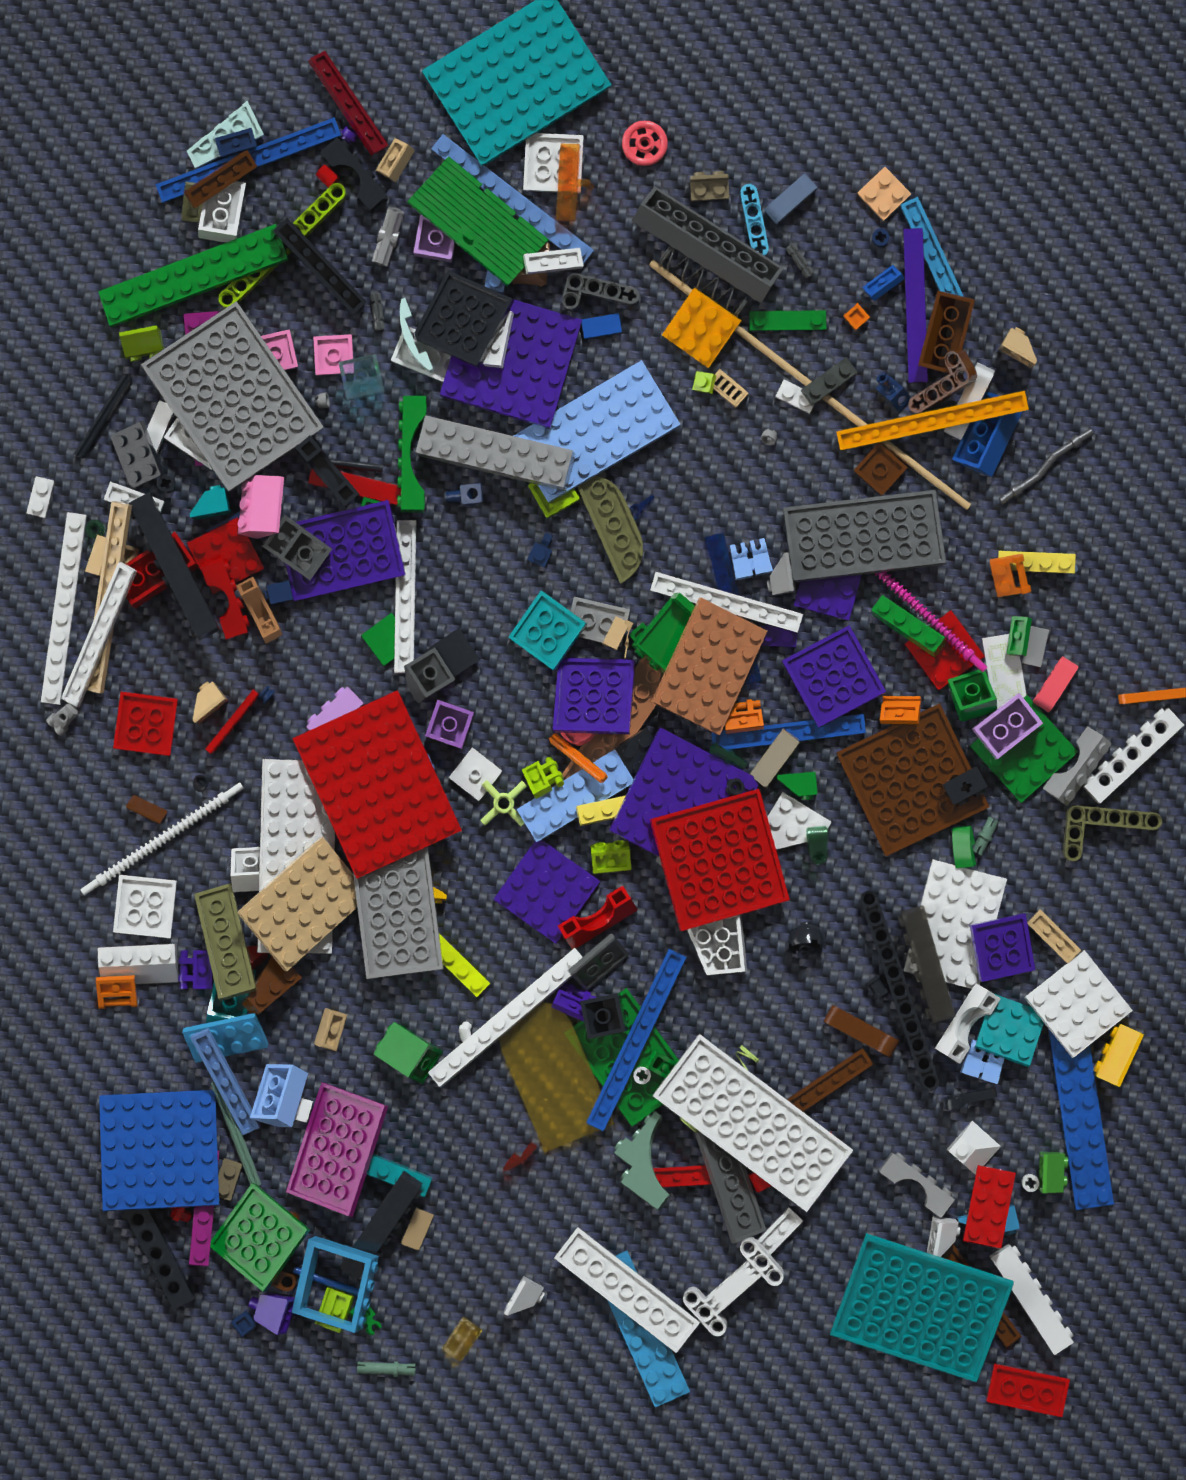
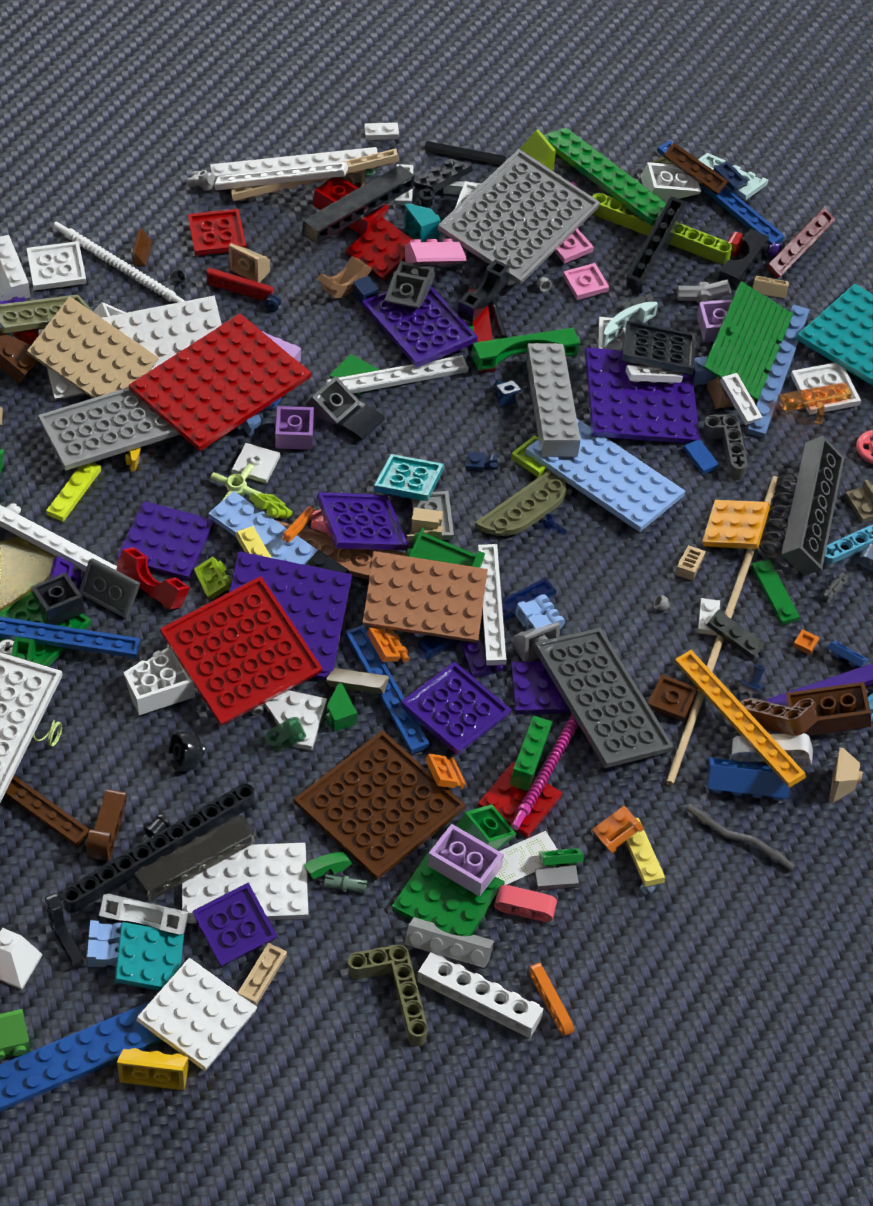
camera: 70 degrees right, 35 degrees down
(217, 575) = (363, 241): red arch -> none
(361, 377) = (574, 298): clear light blue slope -> none
(704, 382) = (687, 540): lime plate -> none
(728, 756) = (344, 643): clear green pin -> none
(734, 782) = (320, 646): black plate -> none
(973, 778) = (390, 842): black brick -> none

